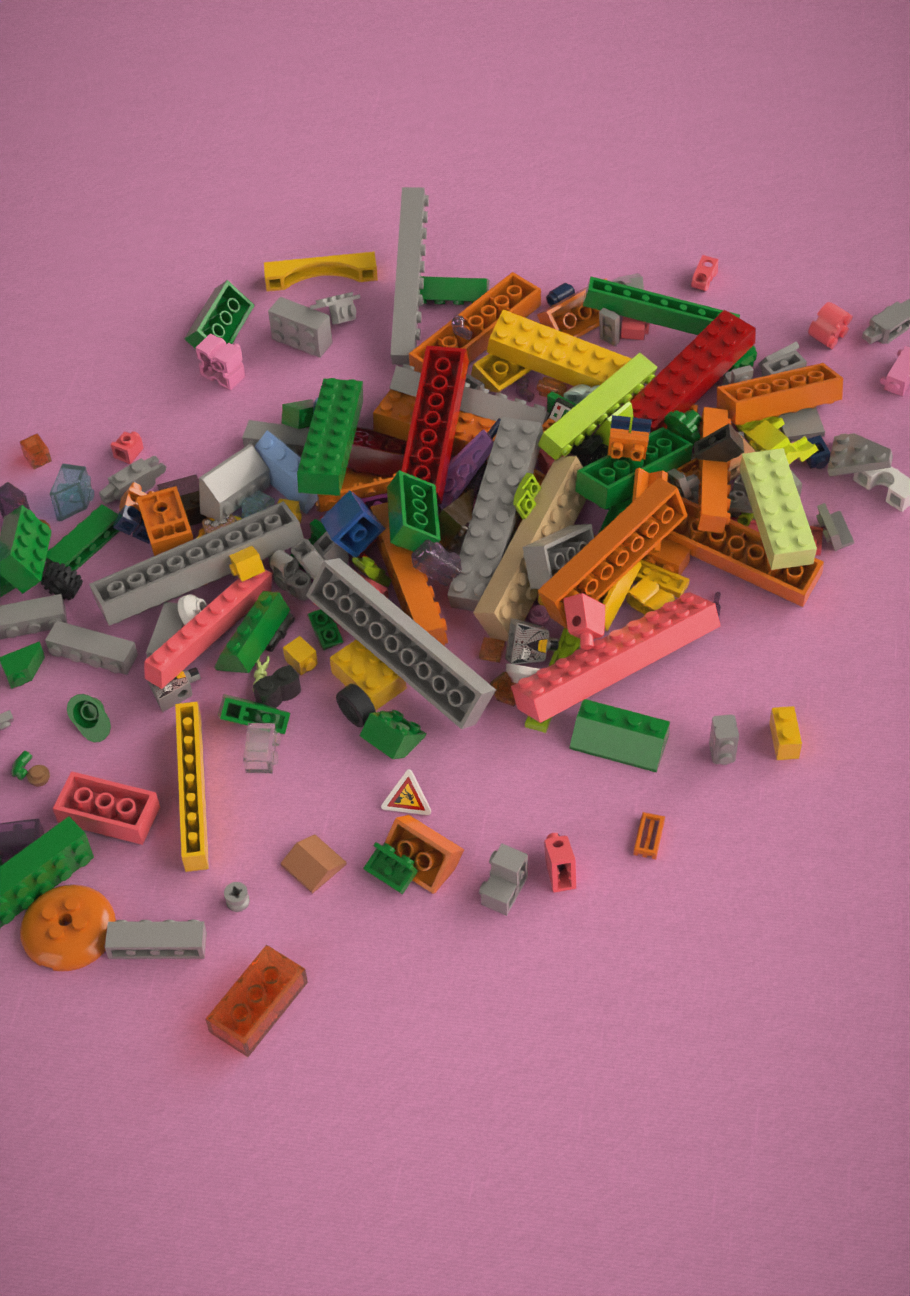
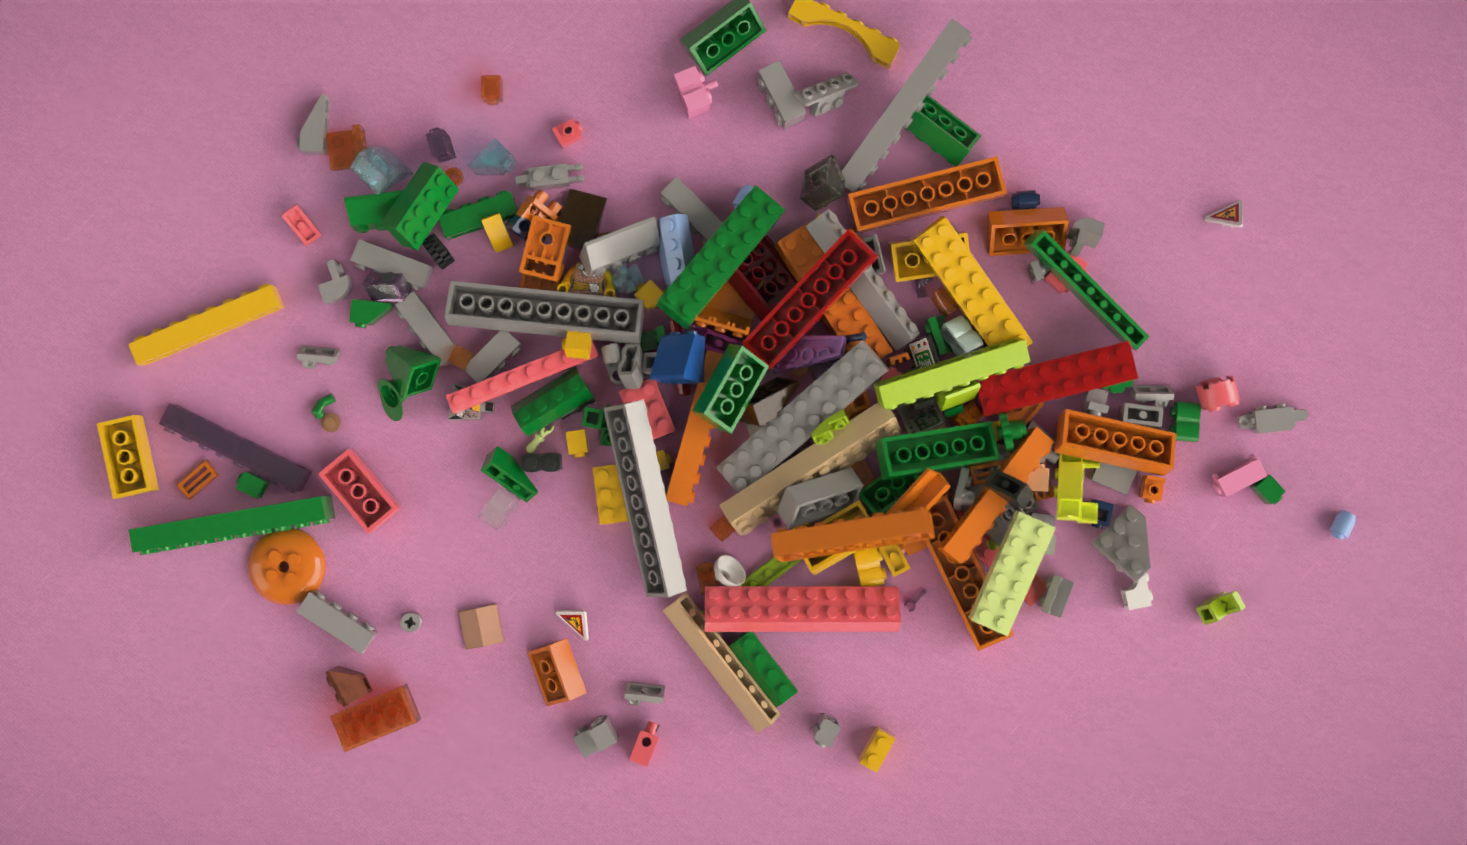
camera: 25 degrees right, 35 degrees up
(27, 629) = (386, 286): none -> brick
(95, 676) = (411, 369): none -> green slope
(112, 542) = (497, 232): none -> yellow slope
(138, 642) = (460, 357): none -> clear orange plate
(189, 607) = (517, 348): white piece -> none
(191, 787) = (429, 511): yellow brick -> none
(203, 985) = (348, 684): none -> copper slope
(298, 414) = (719, 199): green slope -> none
(302, 624) = (593, 418): none -> green brick
(355, 704) = (586, 521): black tyre -> none
(375, 573) = (675, 404): lime slope -> none
(381, 361) = (822, 183): none -> clear smoke slope
(391, 868) = (527, 672): green bracket -> none
(392, 733) = (600, 559): green slope -> none
(436, 562) = (720, 442): brick -> none
(458, 328) = (905, 195): arm -> none
(515, 825) = (644, 692): none -> light grey hinge
(528, 642) = (747, 550): light grey torso -> none
(578, 746) = (722, 663): none -> tan brick
(585, 619) = (792, 576): coral torso -> none
(628, 444) = (942, 436): orange hips -> none
(646, 851) = (718, 755): orange tile -> none
(703, 274) = (1163, 257): coral leg -> none
(733, 221) = (1230, 215): none -> piece
(825, 353) = (1185, 421): none -> green brick
(840, 415) = (1145, 489): none -> orange brick

